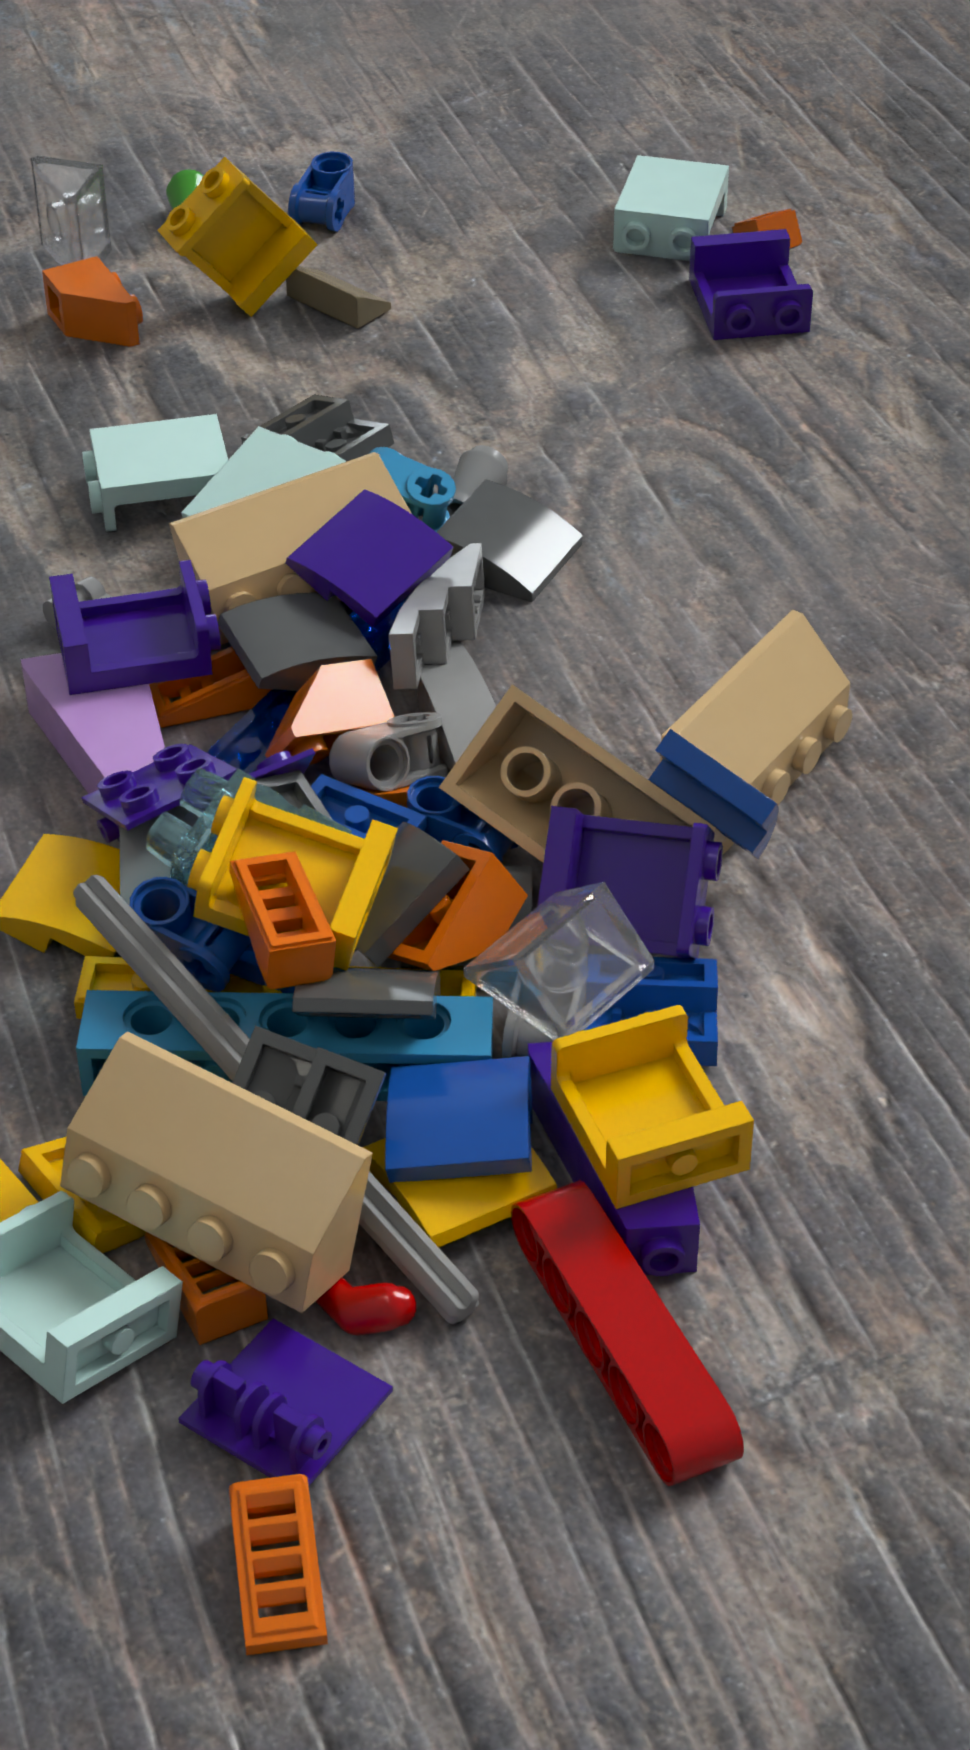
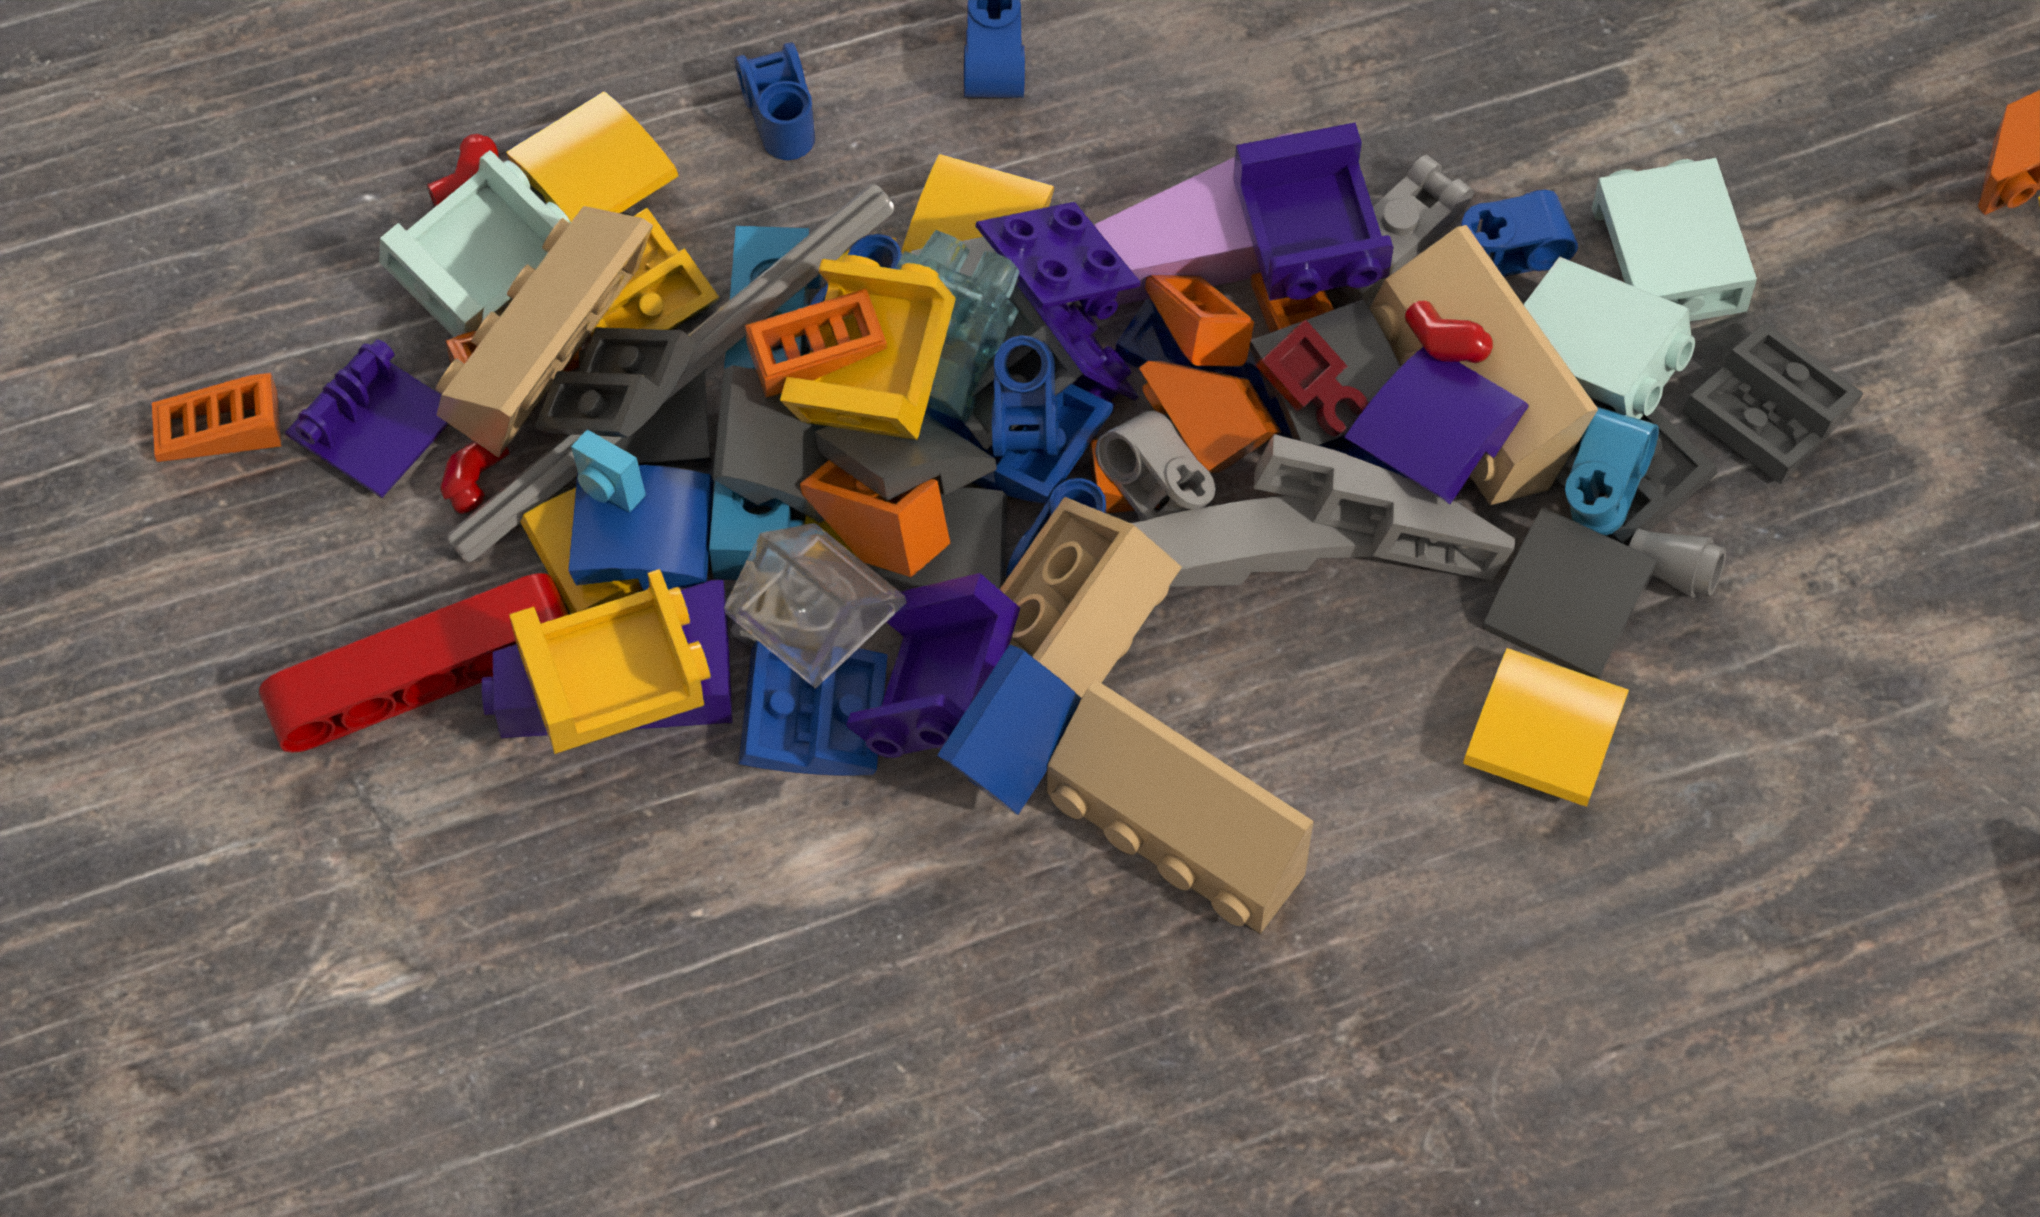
camera: 90 degrees right, 20 degrees up
(140, 553) = (1523, 232): none -> blue piece
(230, 713) = (1201, 320): none -> orange slope
(292, 534) = (1448, 338): none -> red arm
(315, 627) = (1305, 371): none -> dark red plate
(333, 788) = (1024, 402): none -> blue piece
(416, 1108) = (607, 471): none -> medium azure plate
(639, 554) = (1546, 727): none -> yellow slope

